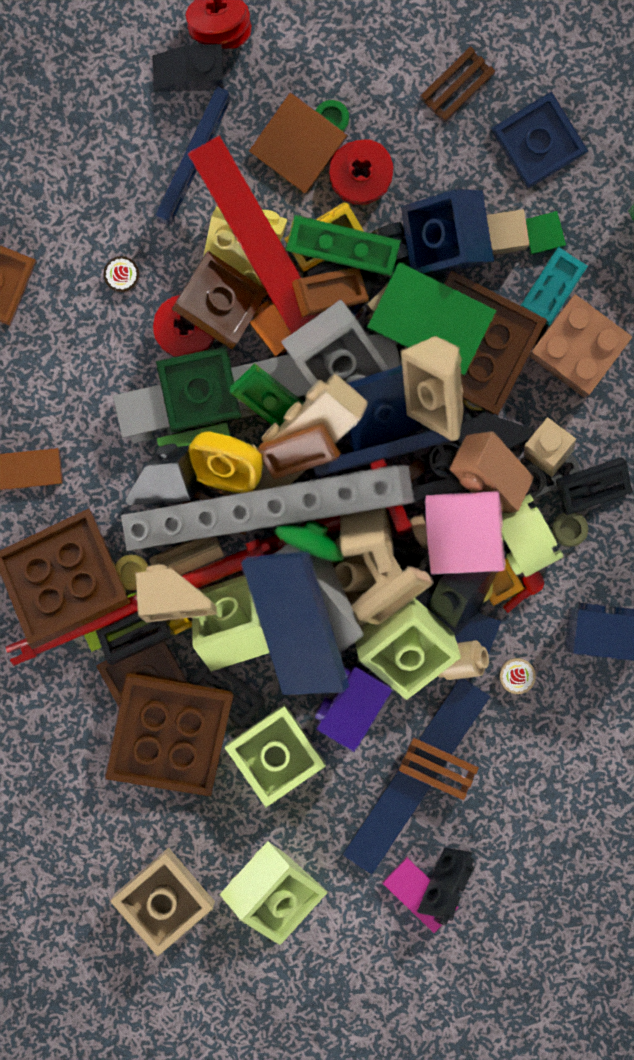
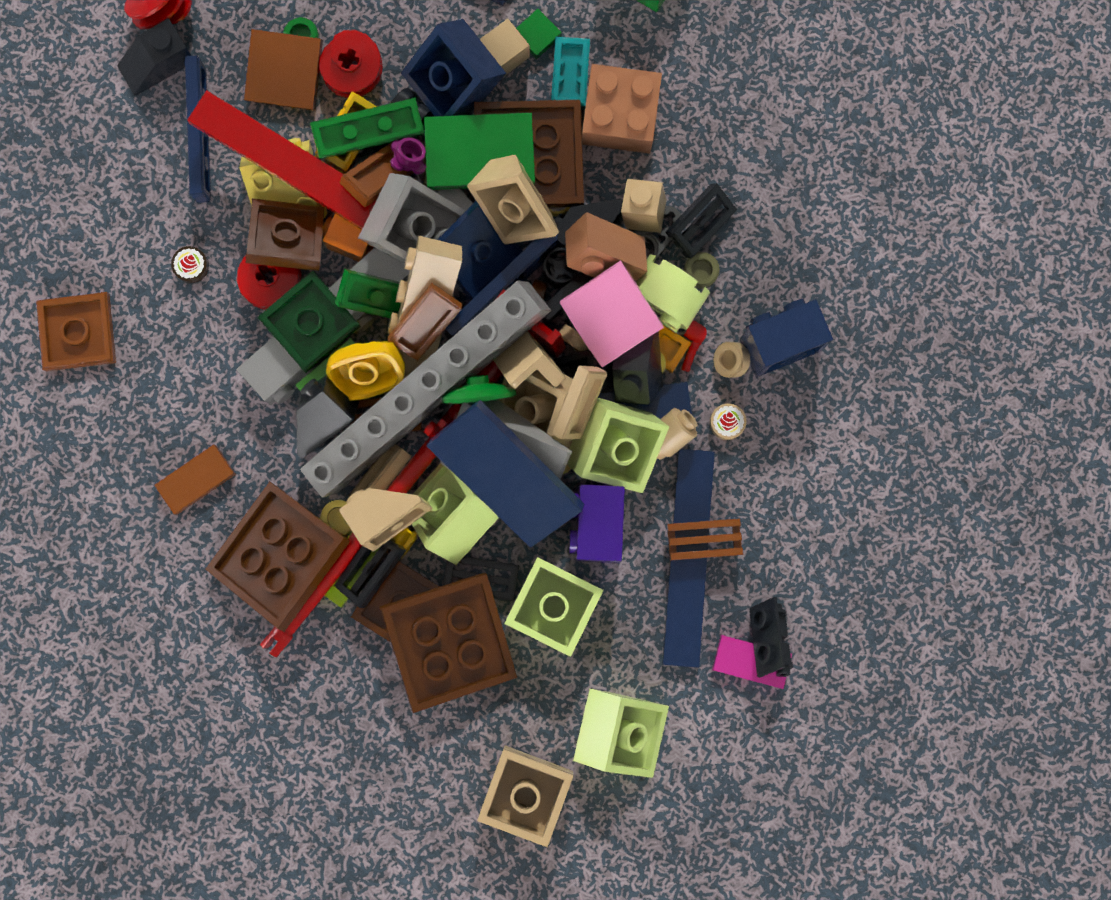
camera: 30 degrees left, 5 degrees down
(374, 288) = (408, 155): none -> magenta plate
(551, 624) = (731, 359): none -> tan tile

